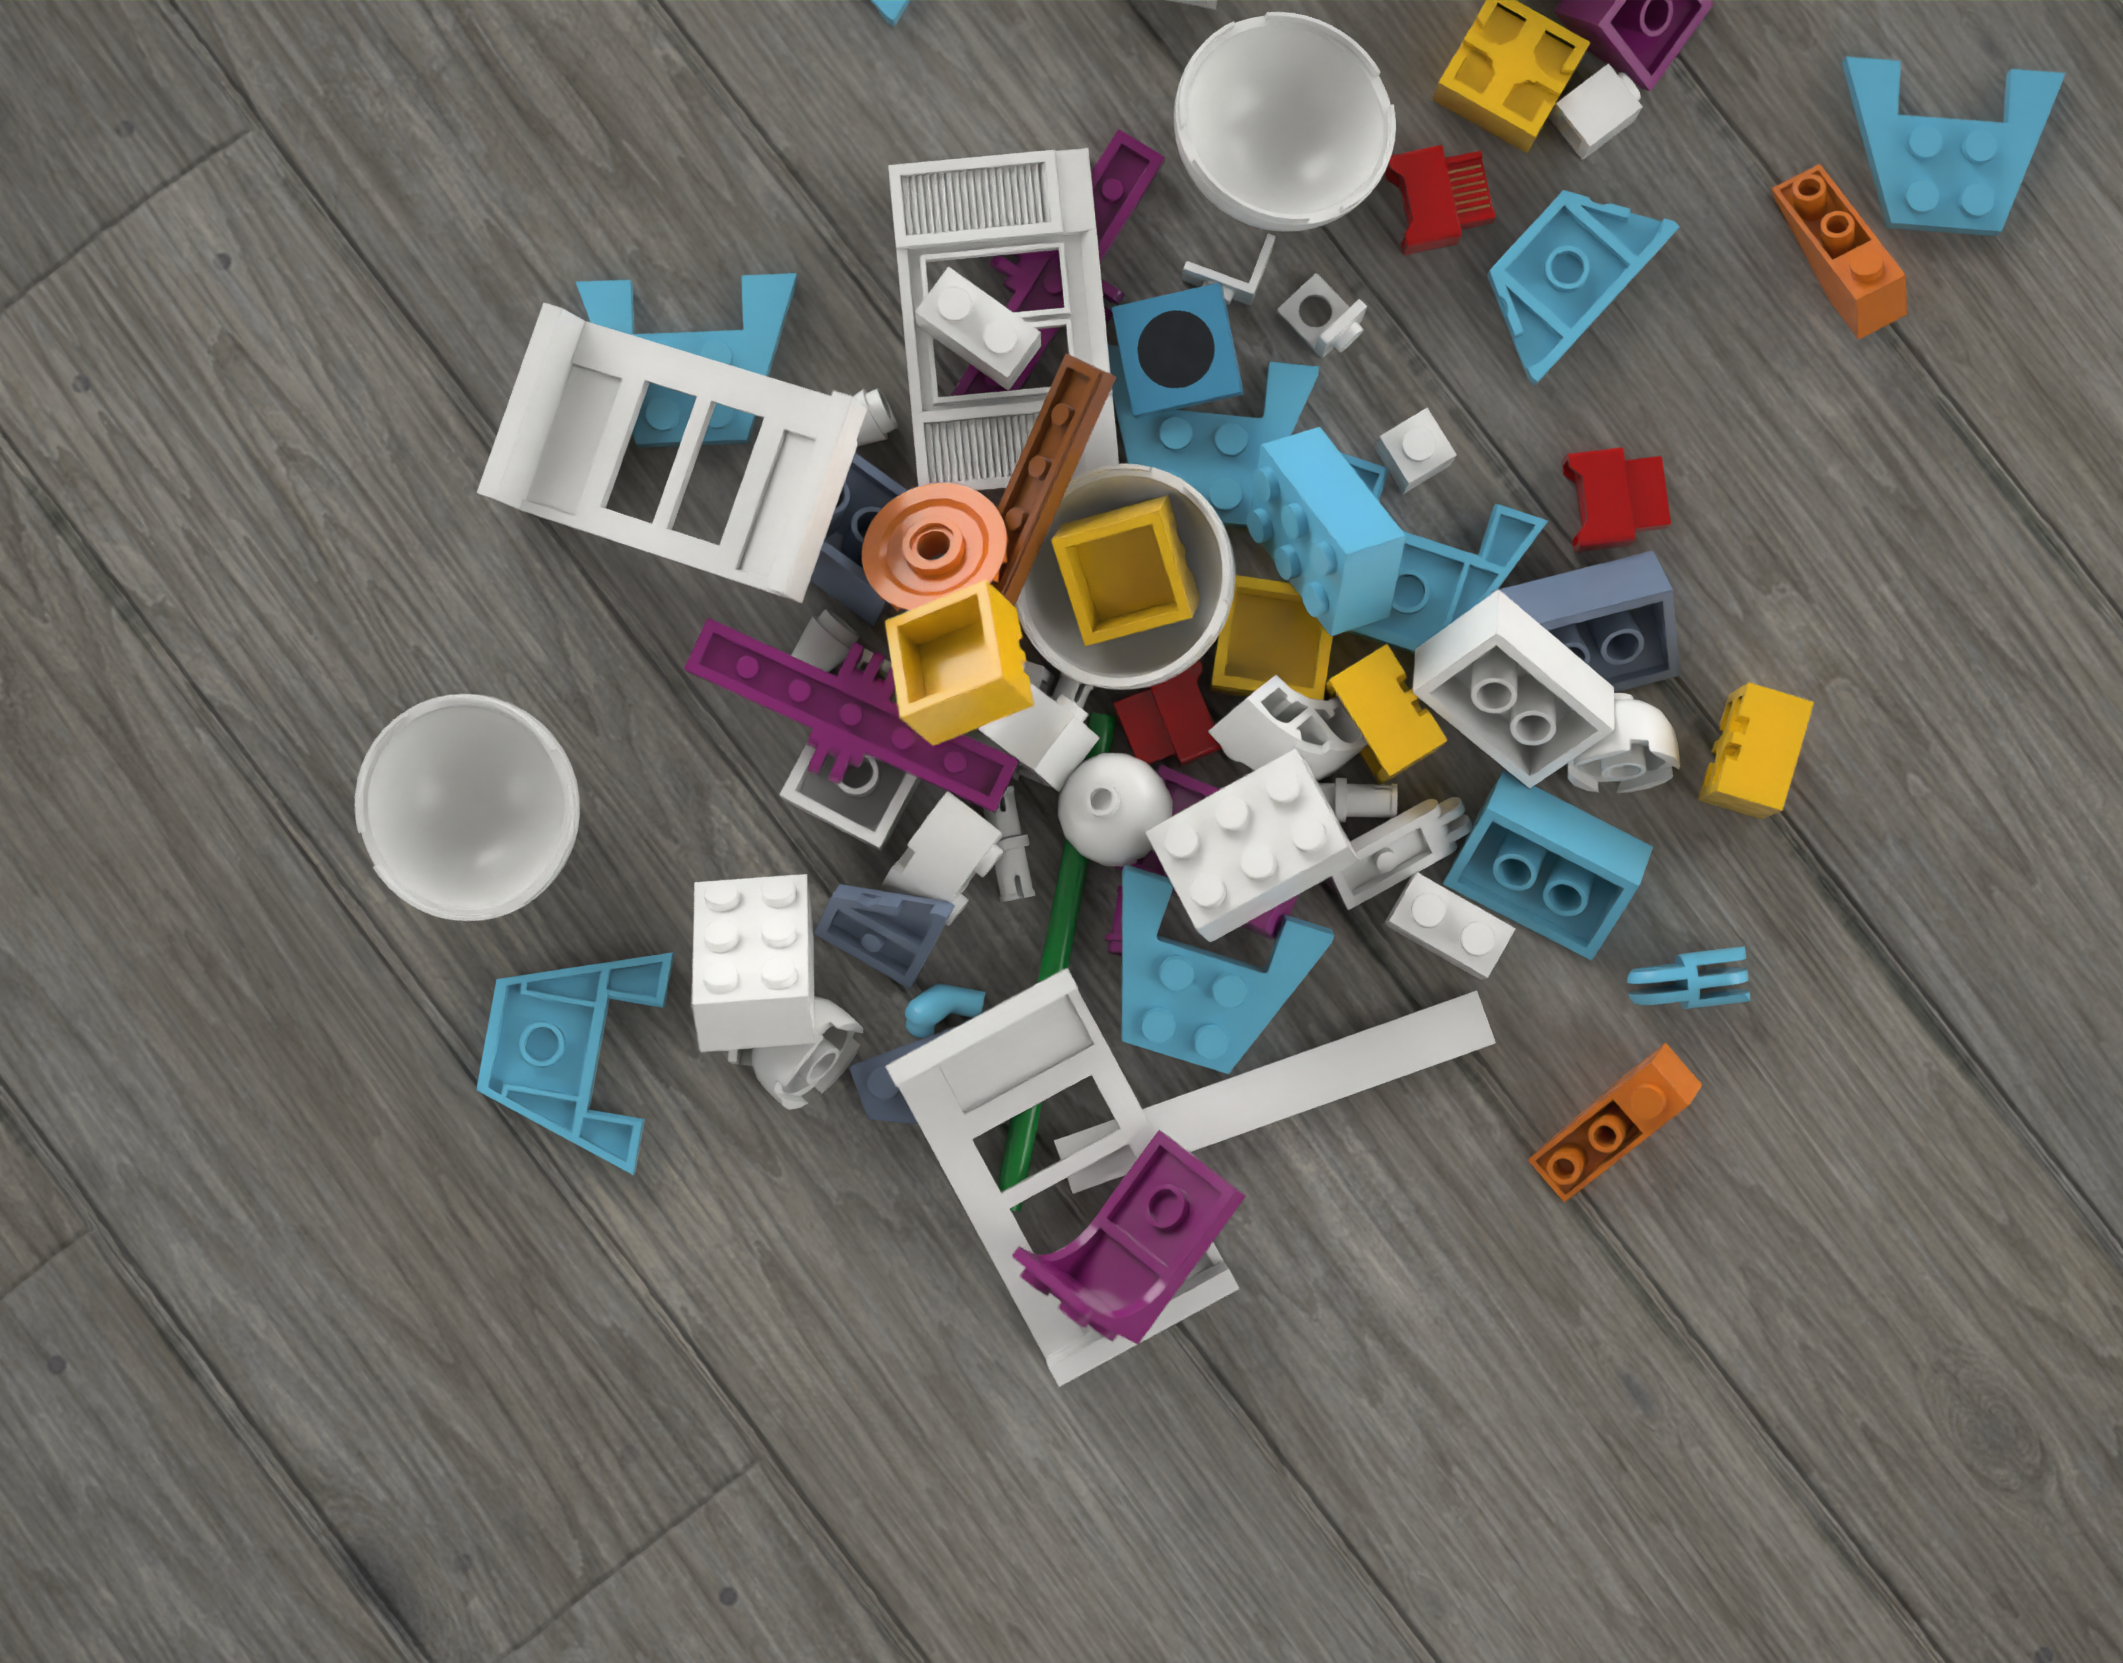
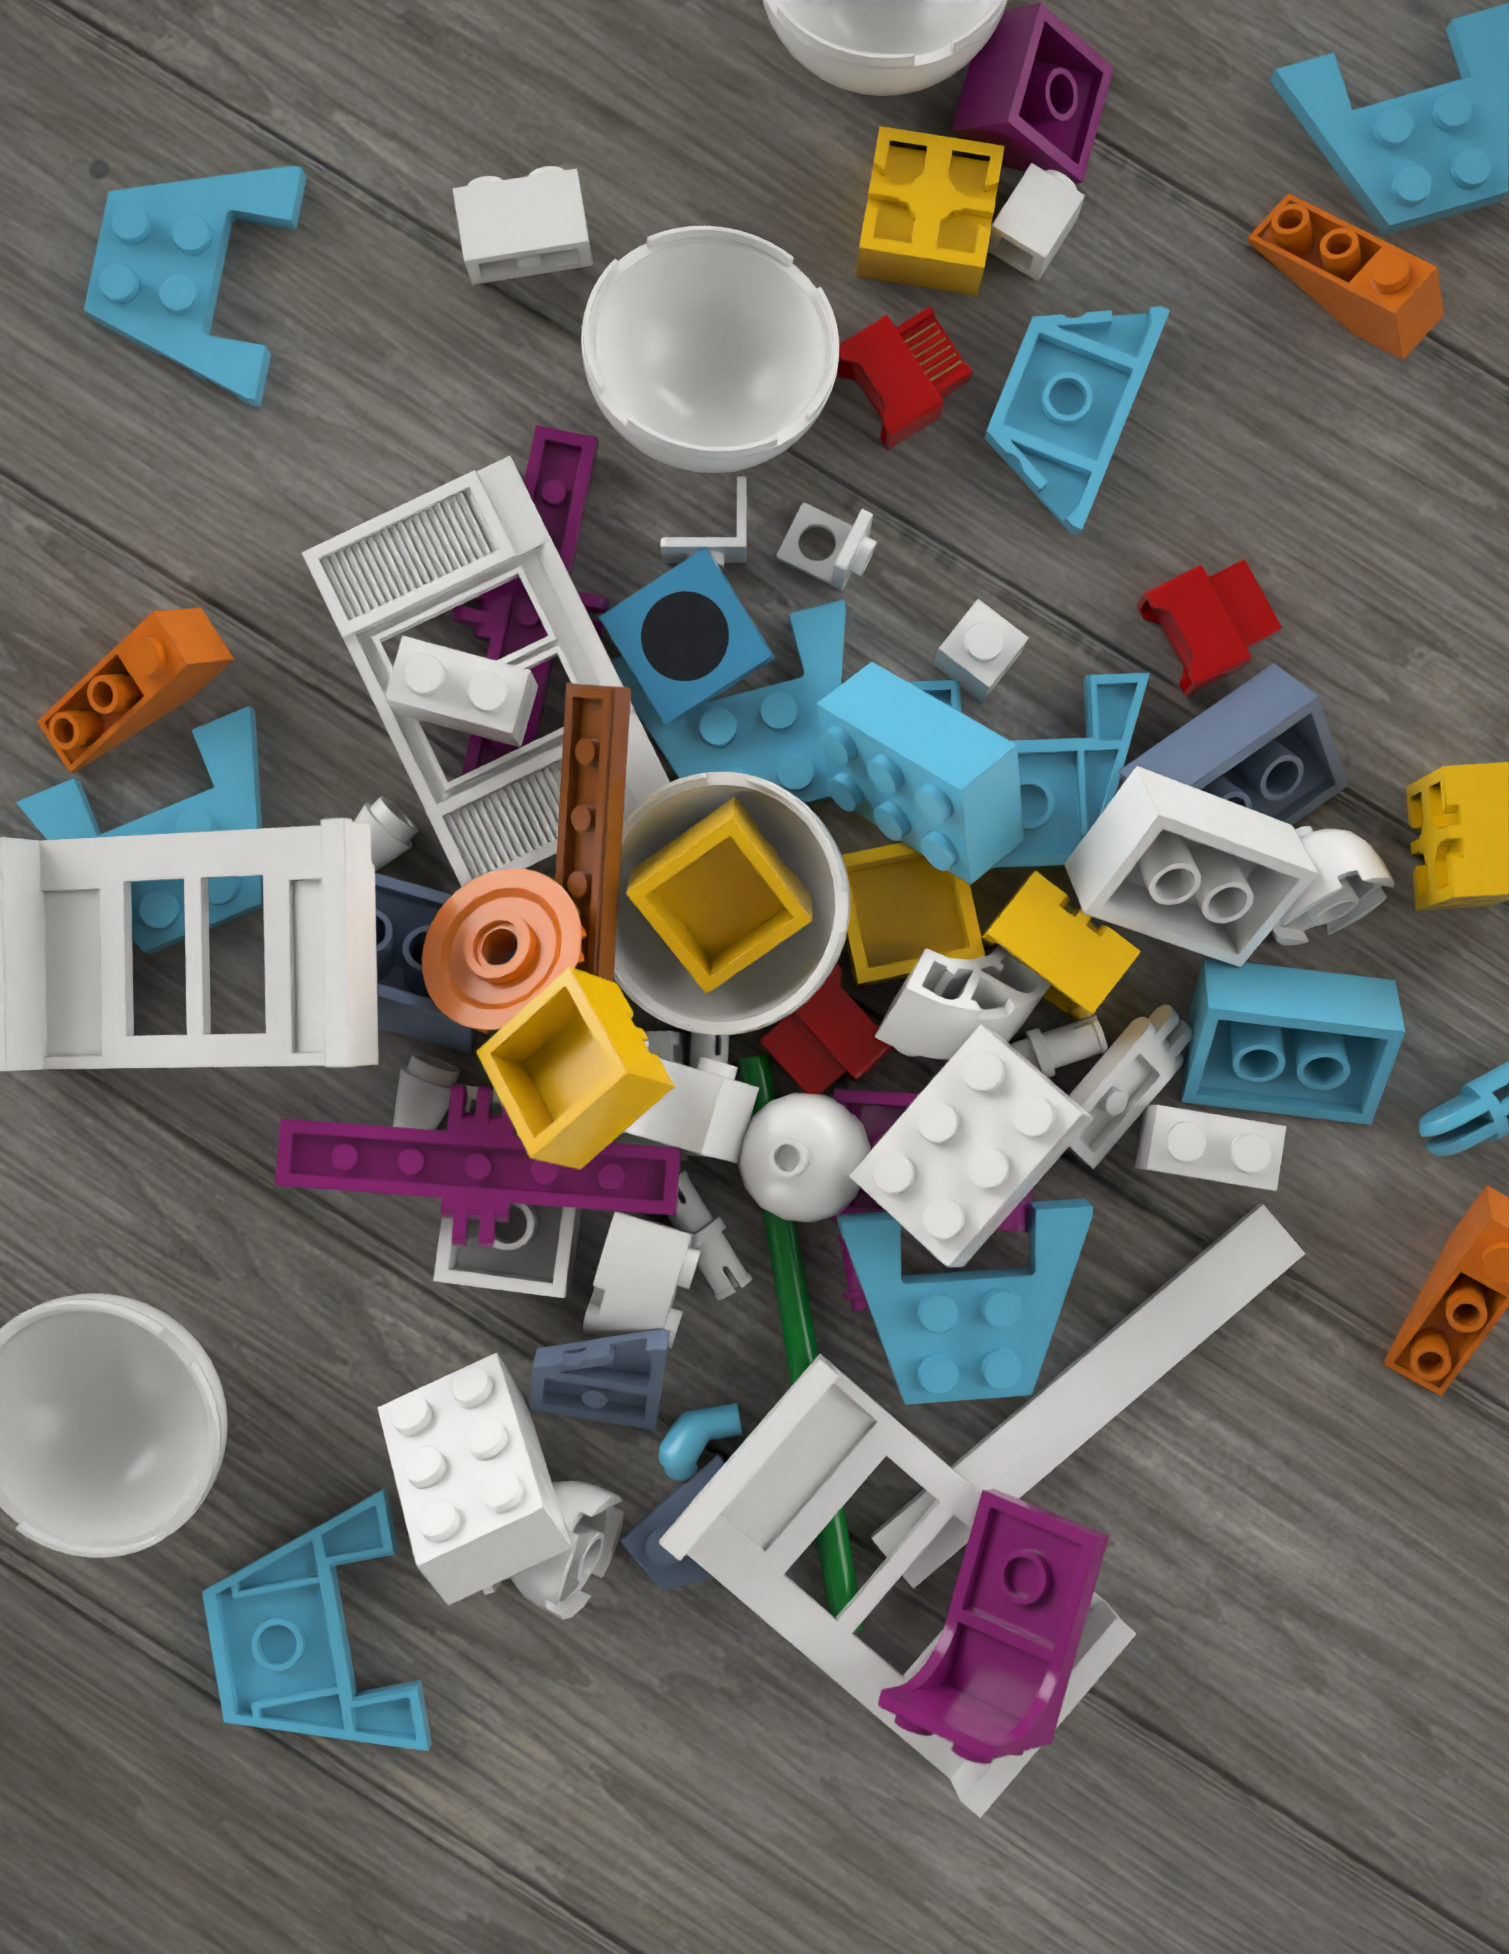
camera: 15 degrees left, 0 degrees up
(708, 222) = (135, 685): none -> orange slope

